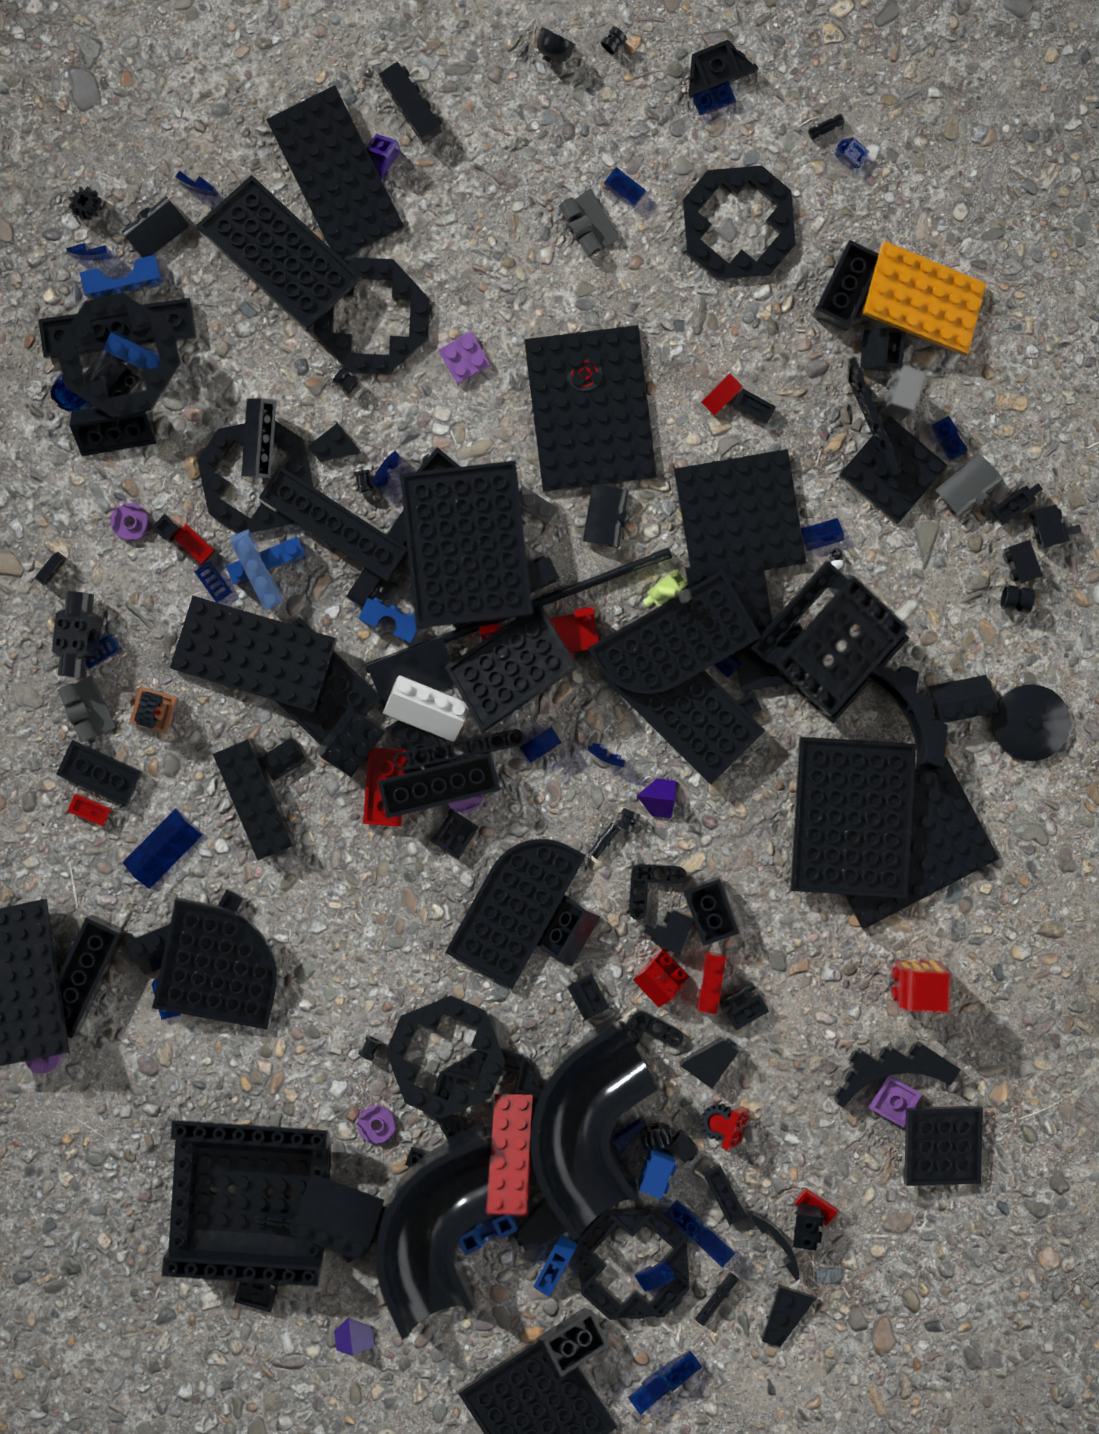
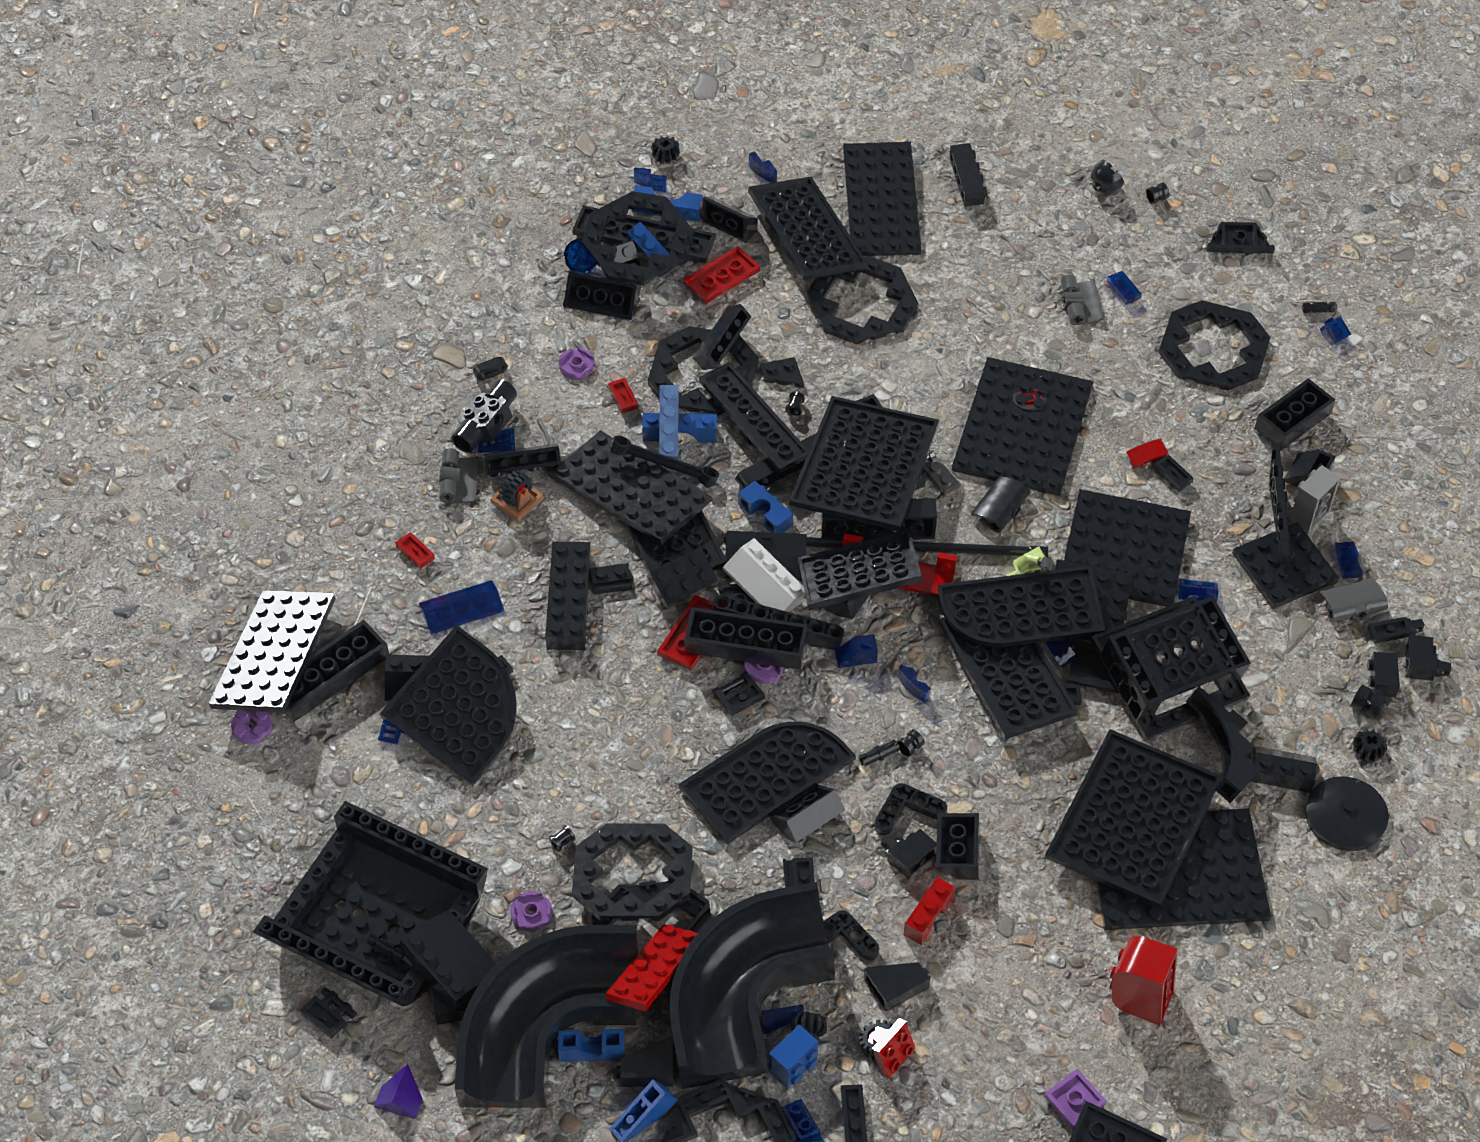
camera: 25 degrees right, 35 degrees down
(99, 773) = (441, 527): black plate -> none
(136, 667) = (521, 459): none -> black brick
(155, 227) = (714, 181): black panel -> none
(166, 527) = (606, 372): black brick -> none
(194, 271) = (729, 219): none -> black slope
(202, 568) = (624, 414): clear blue slope -> none
(220, 348) = (721, 275): none -> red plate
(272, 614) = (622, 446): none -> black piece
(345, 380) = (817, 331): black wheel -> none
(382, 476) = (821, 399): clear blue slope -> none
(383, 153) = (930, 200): dark purple slope -> none
(464, 357) = (928, 353): medium lavender plate -> none
(659, 797) = (948, 738): dark purple slope -> none
(661, 978) = (879, 888): red slope -> none
(683, 1146) = (831, 1051): black brick -> none
(714, 99) = (1222, 258): clear blue slope -> none
(746, 1011) = (954, 953): black plate -> none
(891, 1062) = (1059, 1055): black arch -> none
(924, 298) = (1362, 443): light orange plate -> none
(1038, 642) = (1370, 745): none -> black gear

